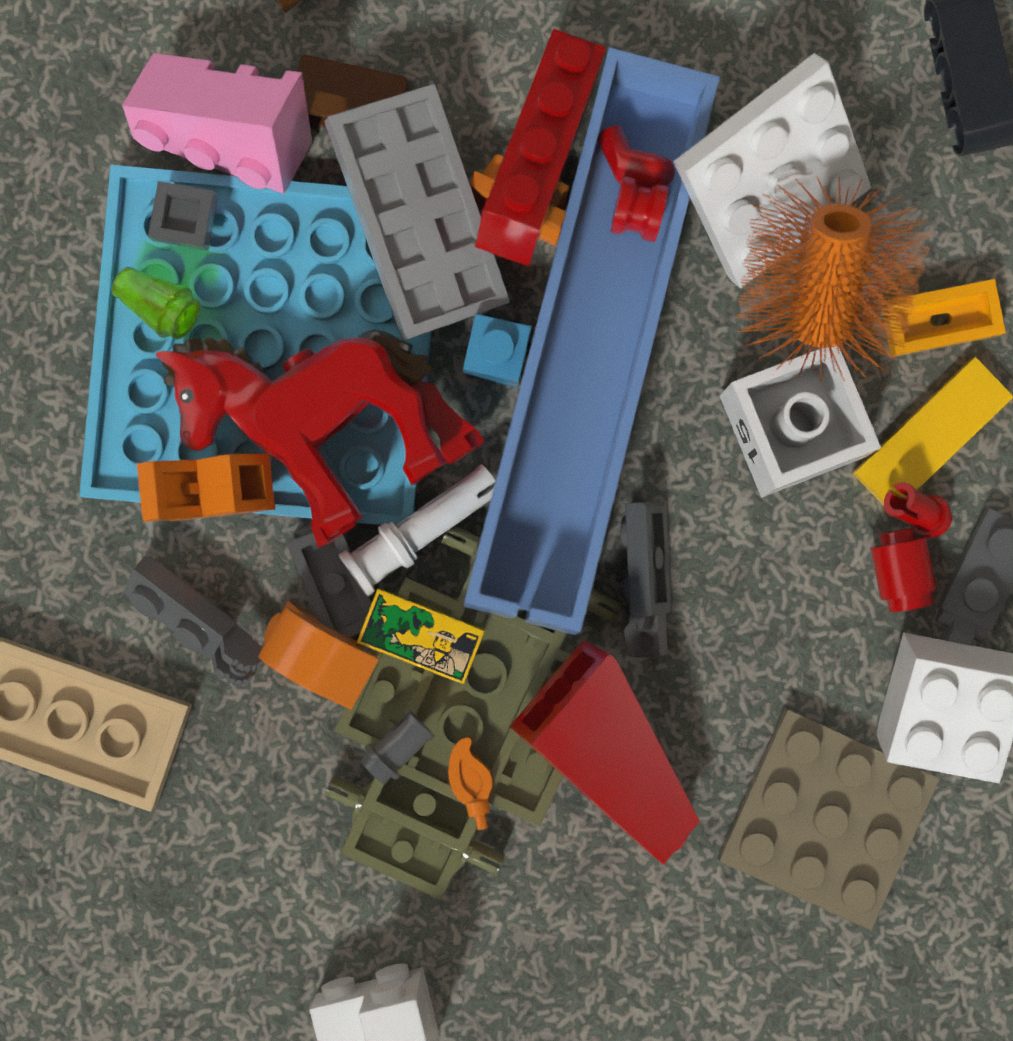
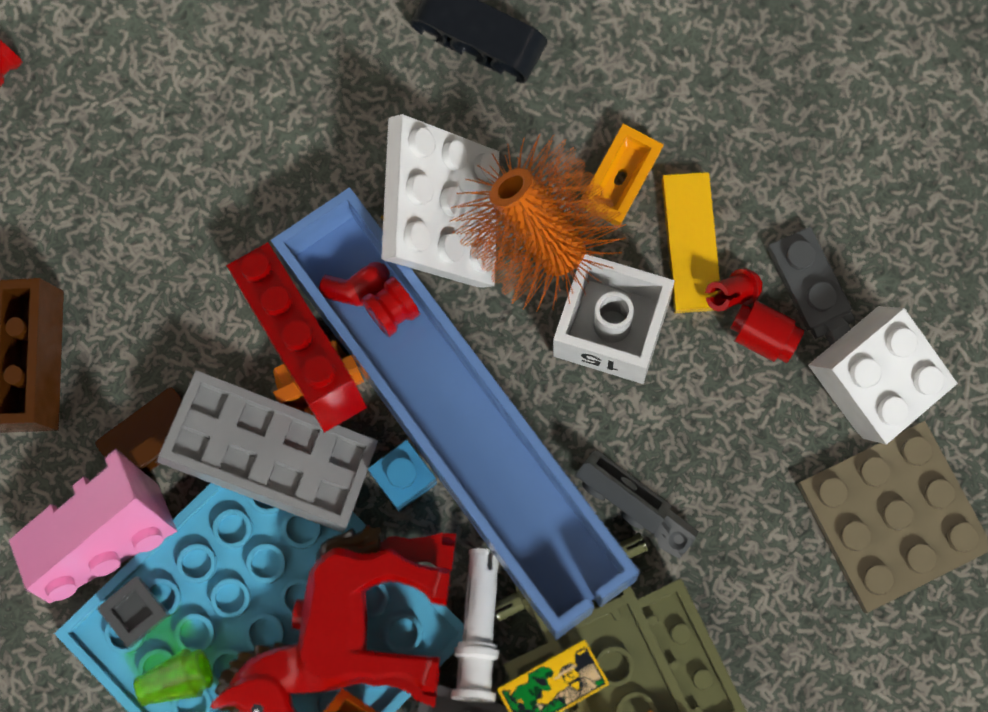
camera: 55 degrees left, 10 degrees down
(605, 747) = (732, 624): red slope -> none

